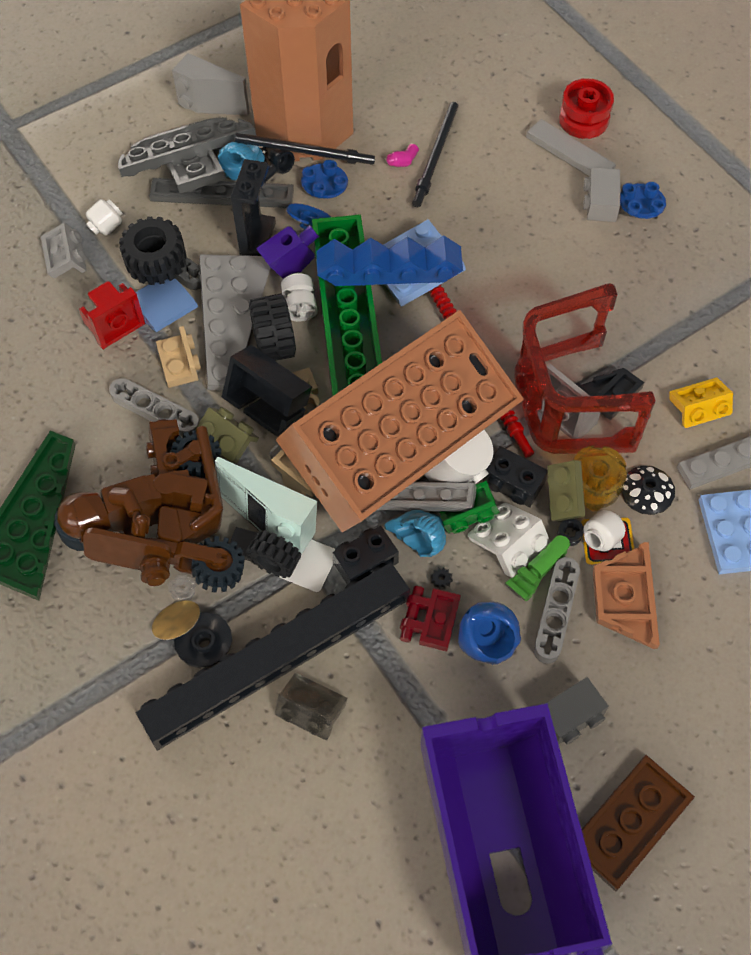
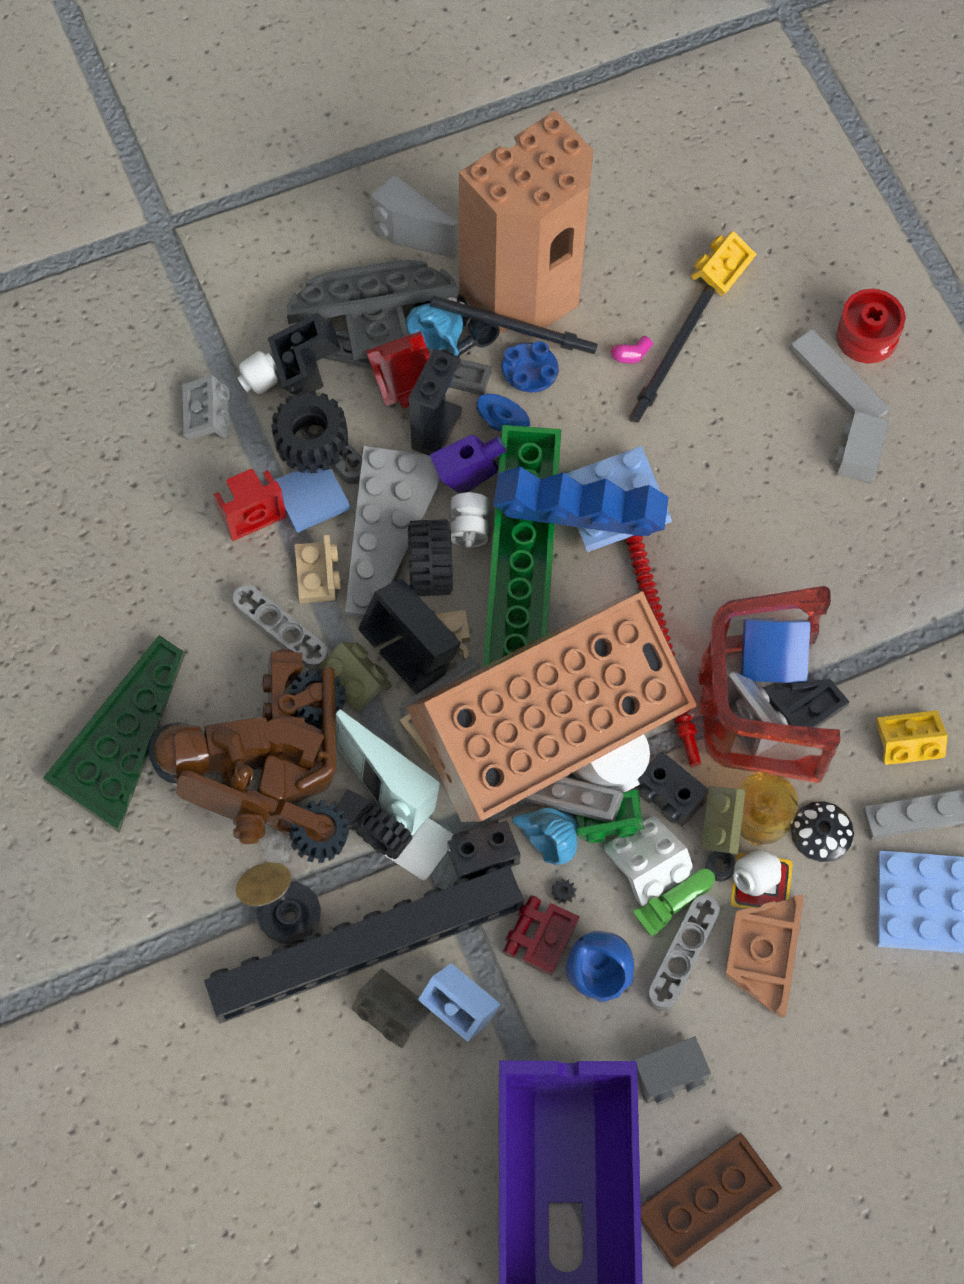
camera: 10 degrees right, 5 degrees up
(135, 190) = (299, 348): none -> black brick
(215, 191) = (399, 367): none -> red panel
(371, 688) = (459, 1002): none -> light blue brick
(461, 83) = (724, 262): none -> yellow bracket
(575, 350) = (775, 650): none -> blue slope
(642, 200) = (909, 462): blue dish -> none

